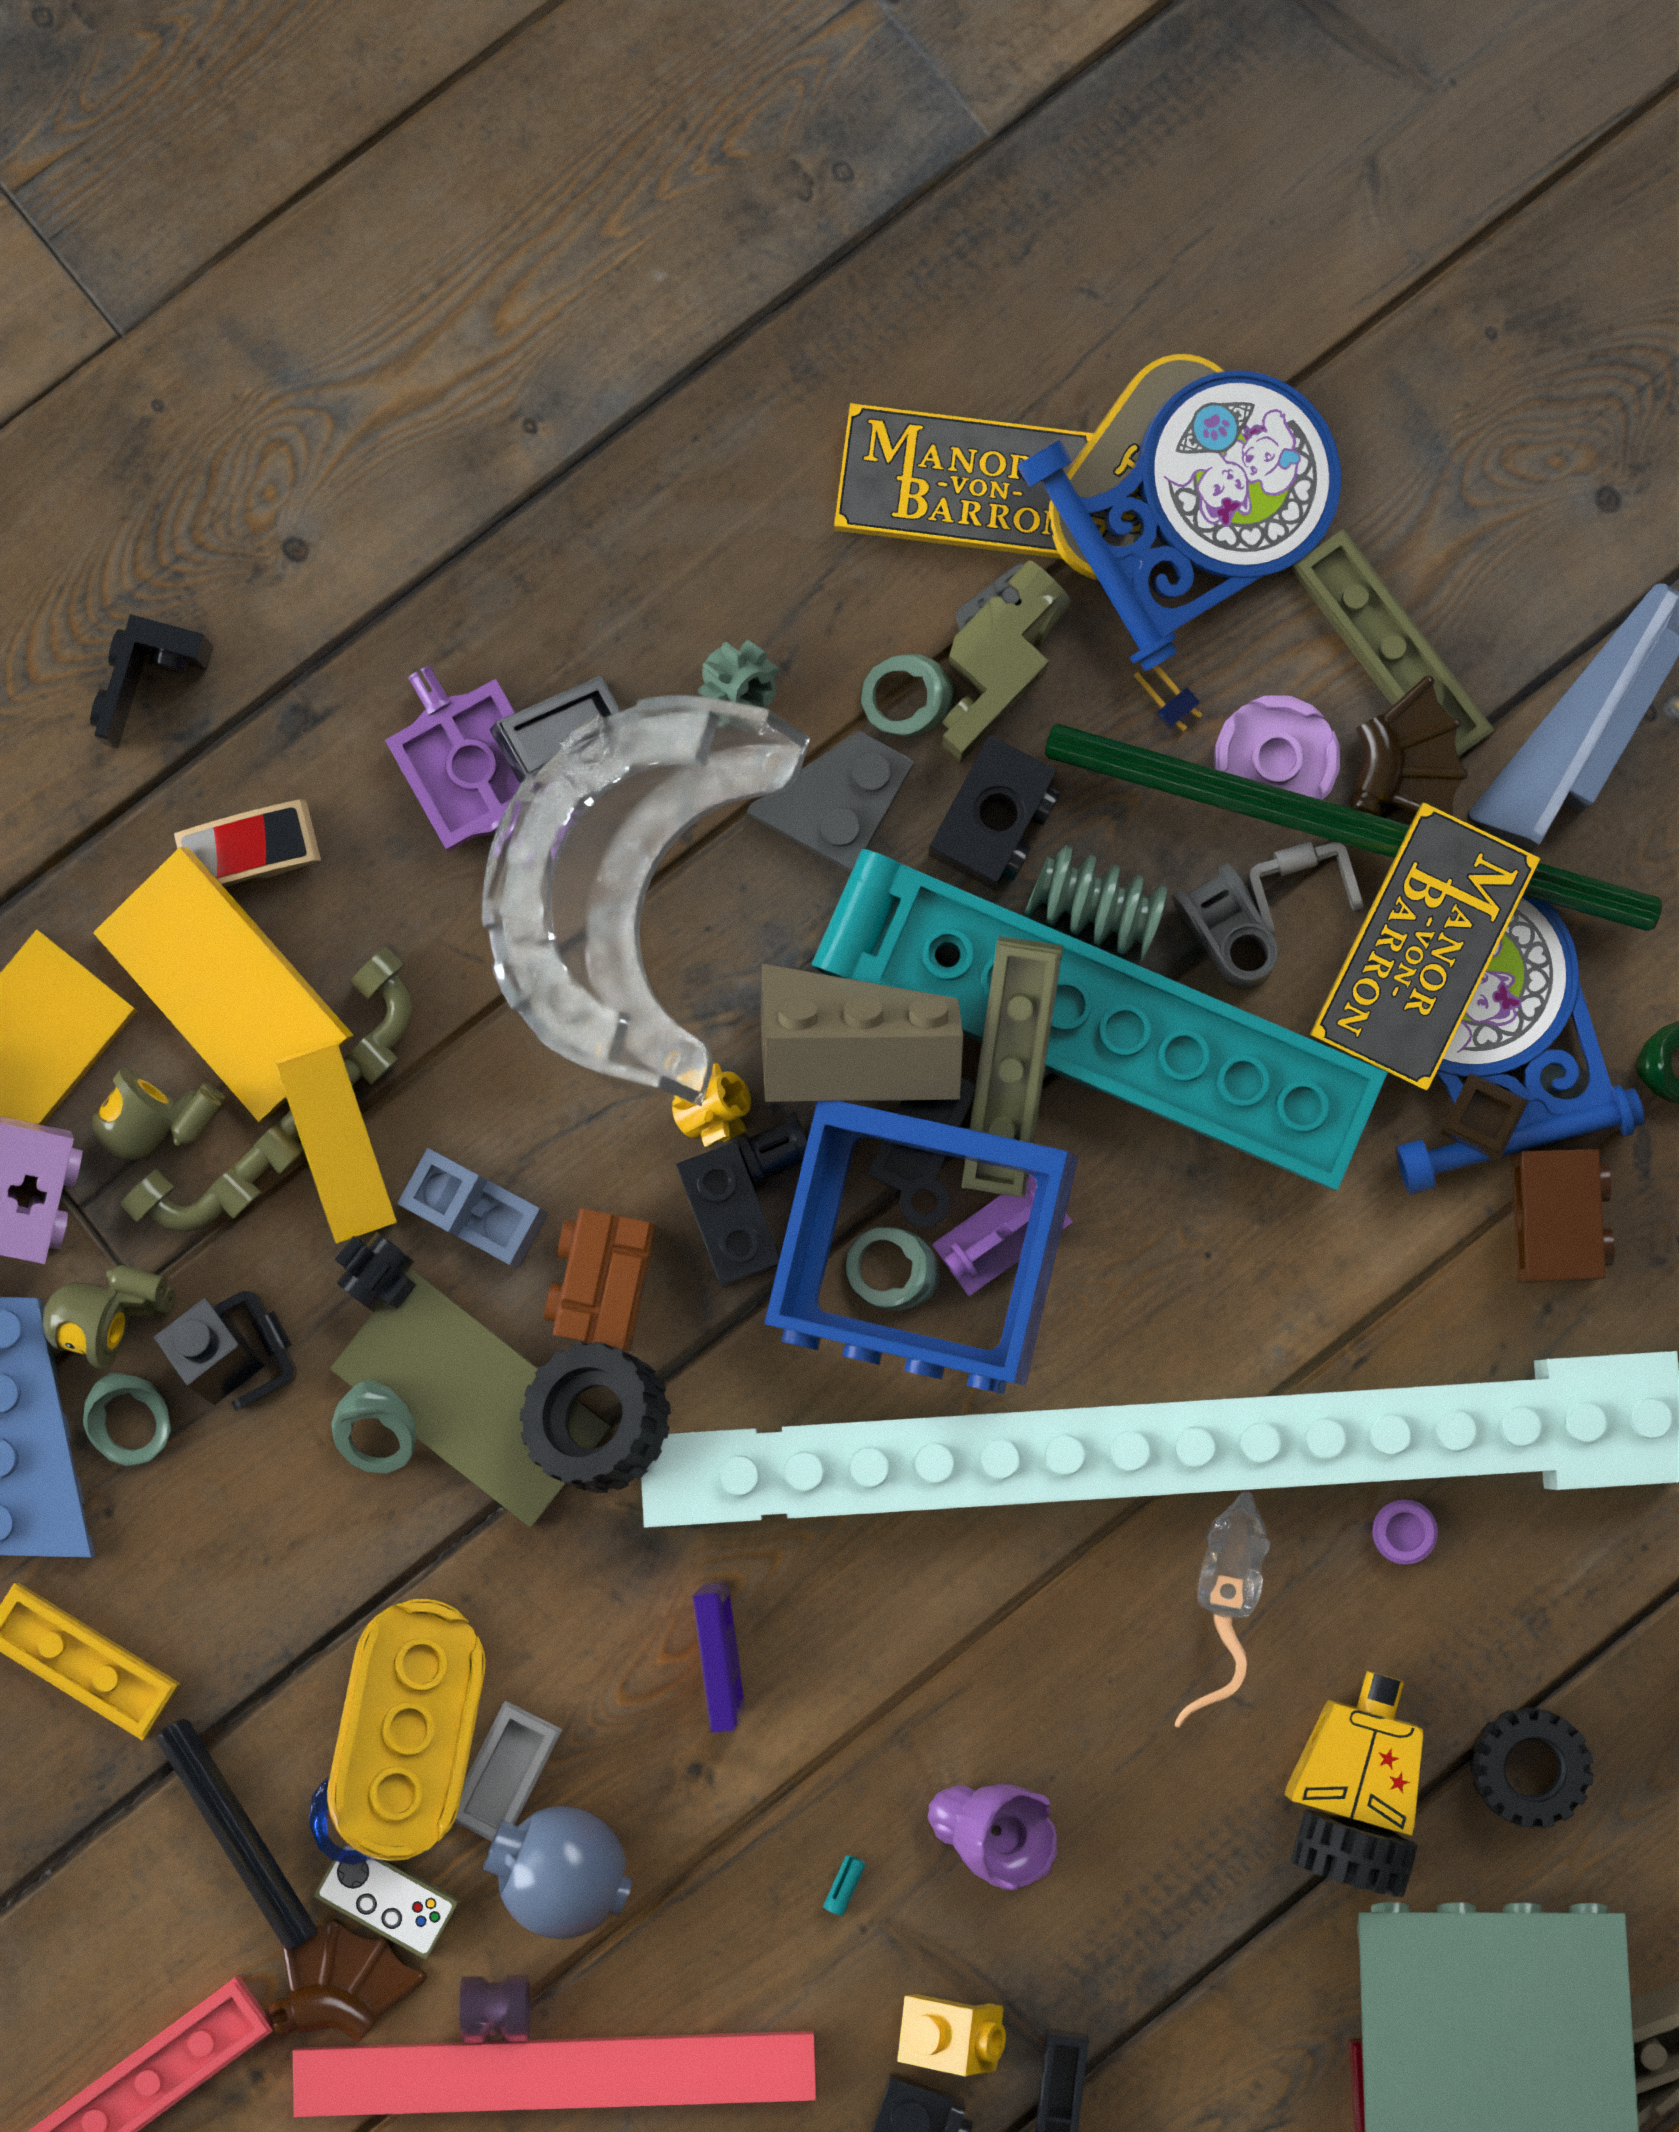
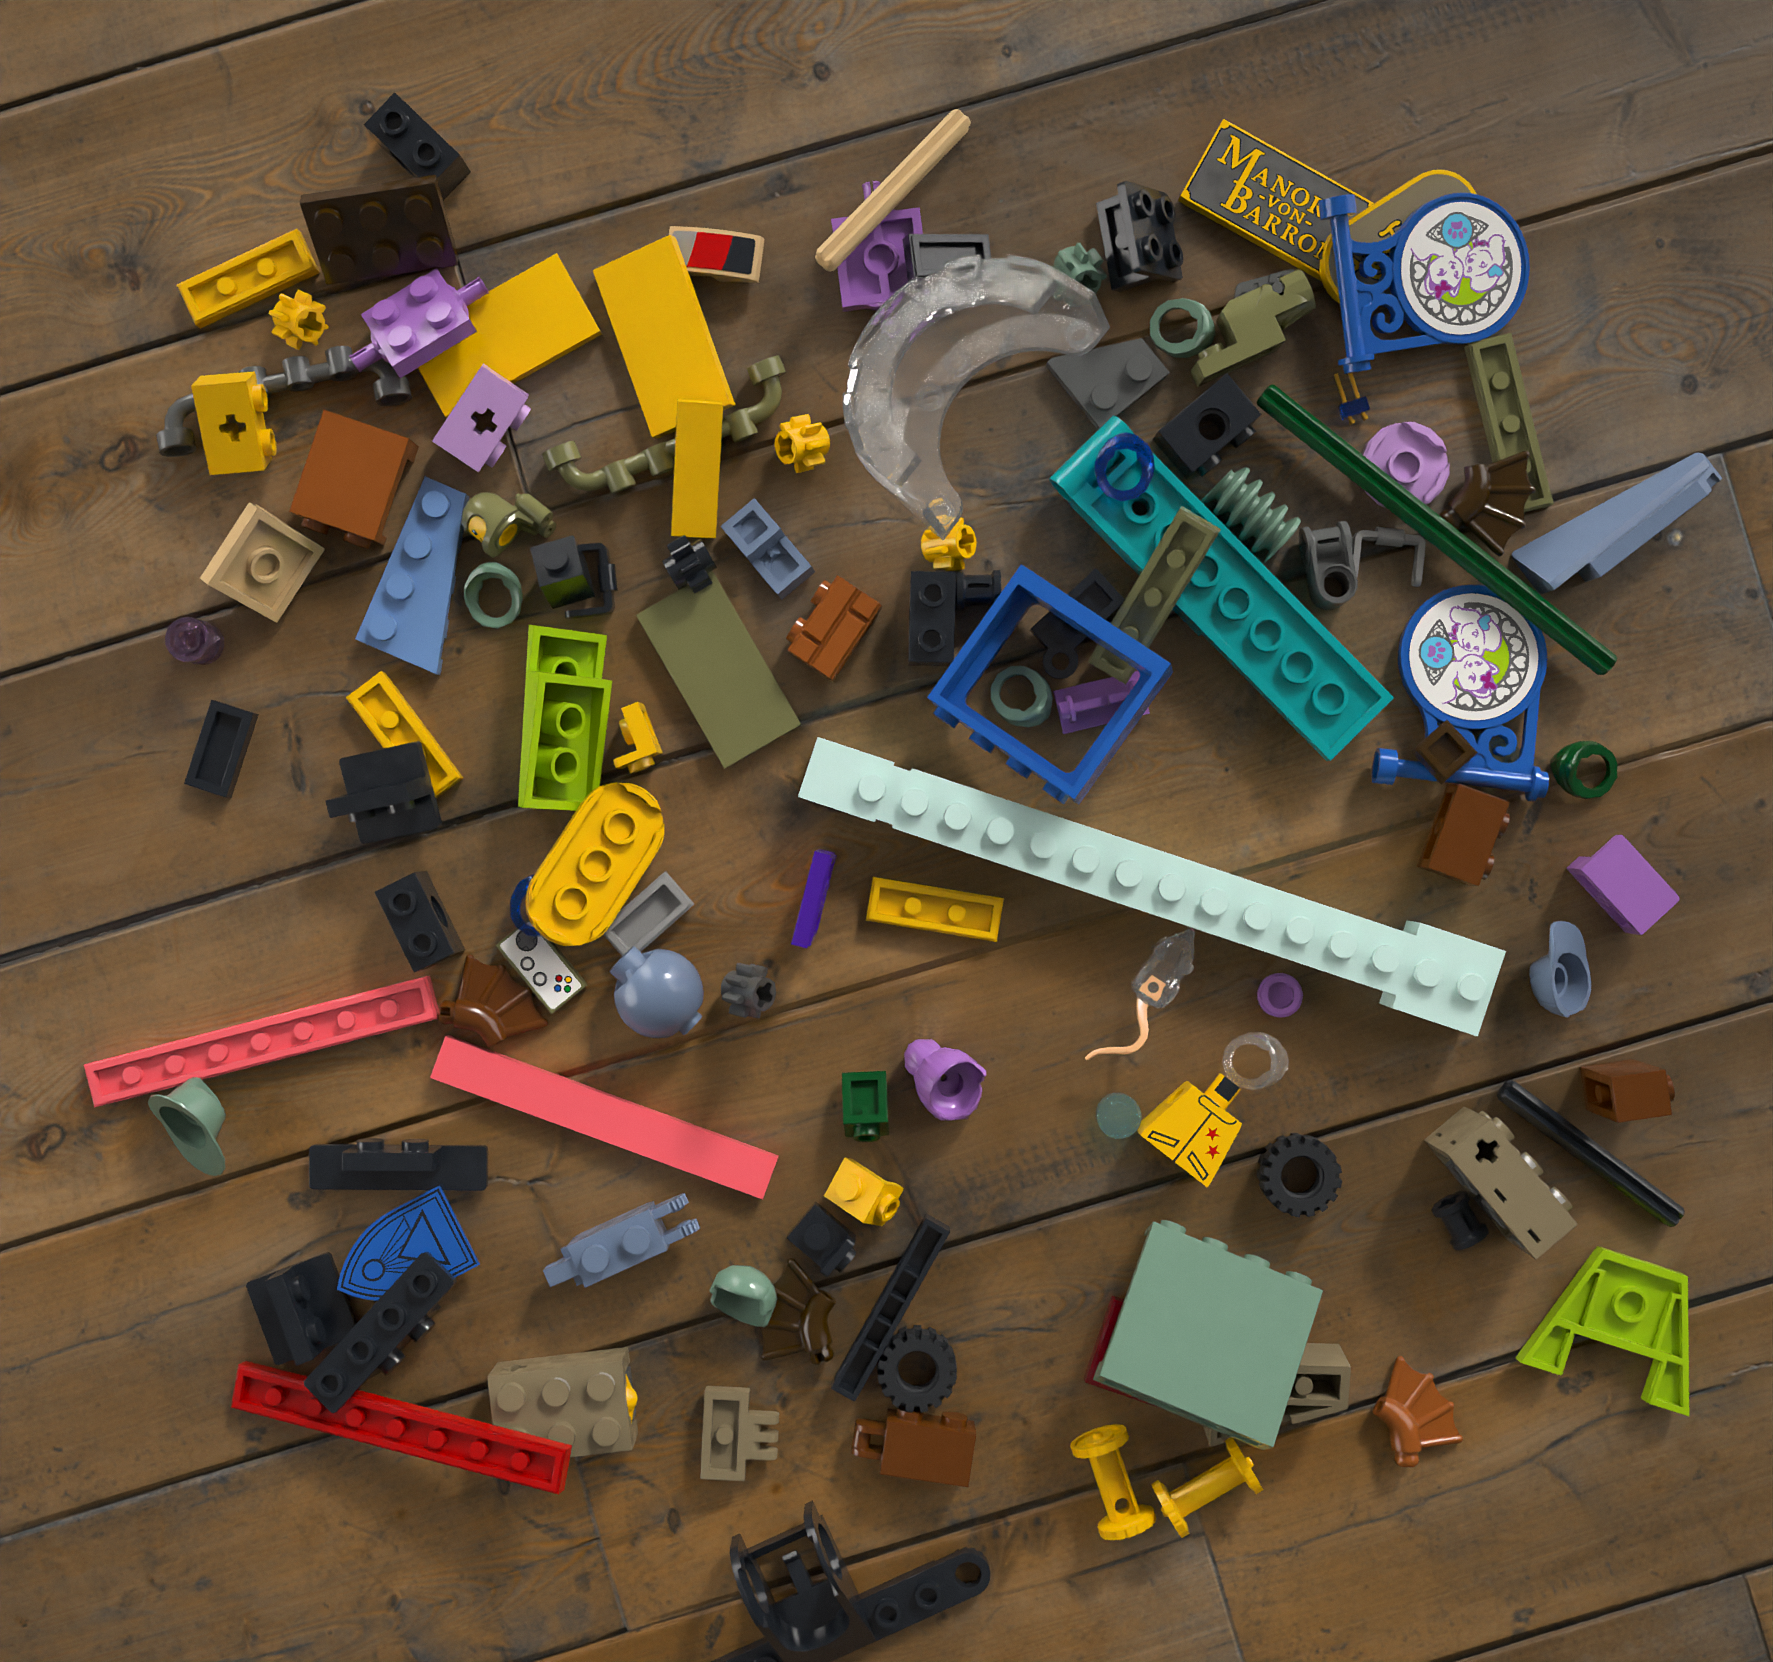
camera: 25 degrees right, 5 degrees up
(86, 1747) = (387, 793): none -> black bracket
(141, 1116) = (577, 402): olive piece -> none
(170, 650) = (714, 102): black bracket -> none
(196, 1904) = (419, 920): none -> black brick
(236, 1834) = (462, 888): black axle -> none
(286, 1548) = (563, 718): none -> lime slope
(374, 1401) = (657, 647): sand green piece -> none
(394, 1523) = (638, 730): none -> yellow bracket
(451, 672) = (892, 190): none -> tan axle
(463, 1050) = (802, 443): none -> yellow gear
(495, 2007) = (584, 1060): clear purple wheel -> none
(551, 1401) = (774, 688): black tyre -> none
(682, 1818) = (748, 990): none -> dark grey gear
(803, 600) = (1139, 237): none -> black bracket
(844, 1885) = (834, 1073): teal piece -> none
(856, 1040) = (1060, 537): dark tan wedge -> none
(890, 1604) = (934, 909): none -> yellow tile
(904, 1912) = (865, 1105): none -> dark green bracket
(923, 888) = (1143, 455): none -> clear blue piece
(1254, 1785) = (1118, 1115): none -> clear light blue tile
(1354, 1853) = (1165, 1183): black tyre -> none
(1424, 946) = (1452, 625): tile -> none
(1441, 1626) = (1278, 1055): none -> clear piece

